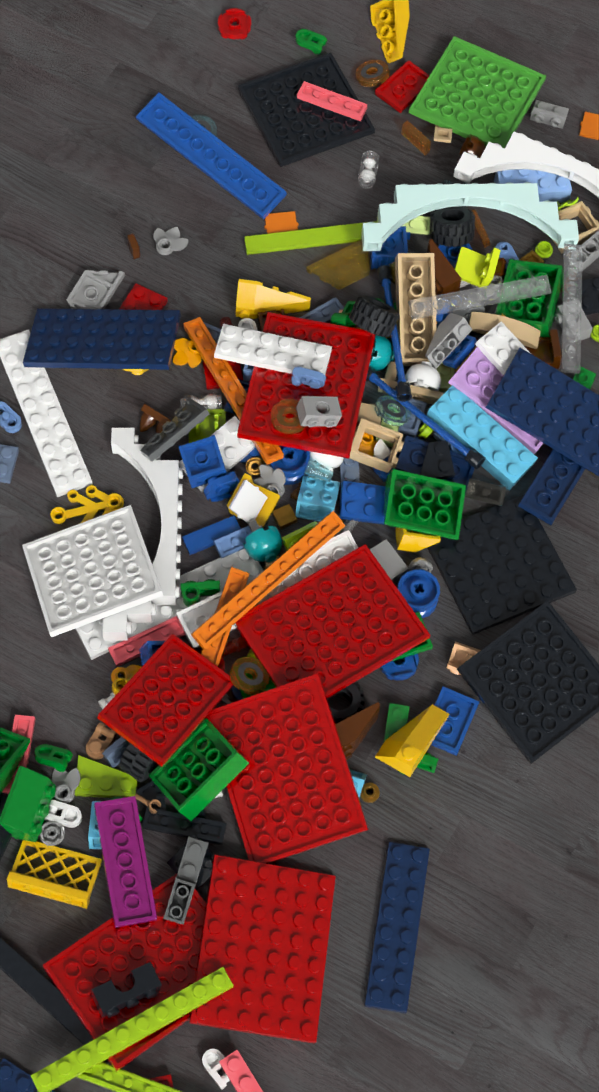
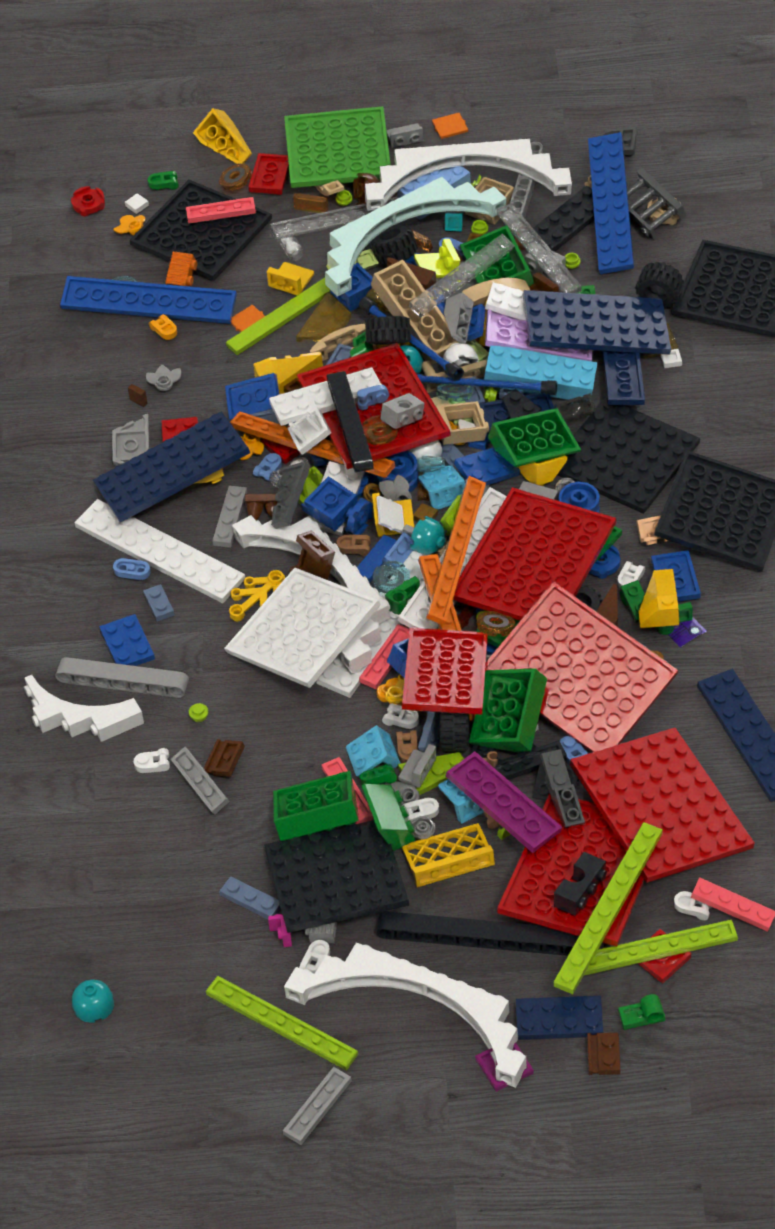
camera: 25 degrees left, 15 degrees down
(67, 729) = (371, 750): none -> medium azure bracket
(88, 771) = (418, 766): none -> light grey panel
(123, 413) = (229, 515): none -> light grey plate
(149, 510) = (315, 555): none -> reddish brown panel
(195, 382) = (270, 463): none -> medium blue plate
(196, 506) = (348, 545): none -> medium nougat plate
(201, 555) = (389, 568): none -> clear light blue tile
(205, 195) = (164, 327): none -> light orange plate
(220, 307) = (251, 395): none -> blue plate
(232, 835) = (572, 748): none -> medium blue plate
(233, 377) = (309, 430): none -> white plate
(252, 68) = (130, 224): none -> light orange plate
(255, 143) = (181, 269): none -> orange brick
(266, 394) = (350, 422): none -> black beam
(273, 50) = (136, 203): none -> white tile
(330, 291) = (341, 336): none -> tan slope
(344, 204) = (289, 278): none -> yellow bracket
(406, 696) = (630, 573): none -> white plate
(412, 164) = (319, 221): none -> clear plate
(421, 782) = (686, 632): none -> dark purple sticker
(449, 149) = (344, 198): none -> lime plate
(524, 230) = (453, 221): none -> teal tile

